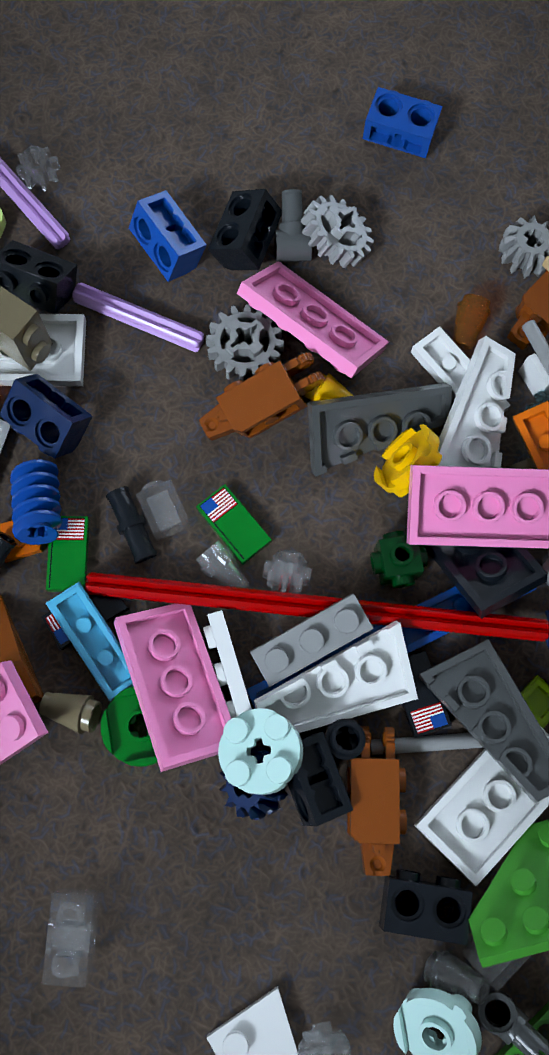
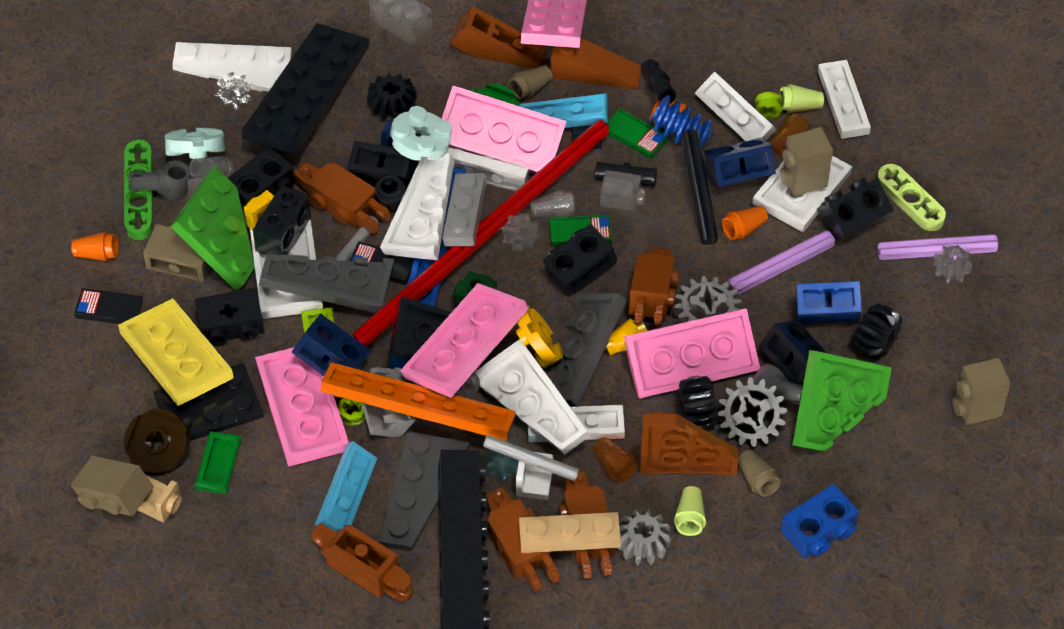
camera: 130 degrees right, 20 degrees down
(41, 800) = (494, 40): none -> dark orange slope
(104, 434) = (699, 187): none -> black axle
(116, 375) = (743, 222): none -> orange cone
(170, 173) = (877, 331): none -> black gear
(179, 56) = (981, 391): none -> dark tan brick
(186, 850) = (391, 96): none -> black gear
(262, 962) = (305, 89): none -> black plate
(270, 170) = (836, 397): none -> bright green plate
(282, 480) = (585, 265): none -> black brick
(364, 278) = (698, 401): none -> black gear
(390, 197) = (759, 474): none -> dark tan cone
(437, 248) = (681, 447): none -> dark orange plate
(471, 228) = (690, 513): none -> yellowish green cone
(478, 867) = (256, 207): none -> yellow plate
(479, 824) = (282, 222): none -> black brick

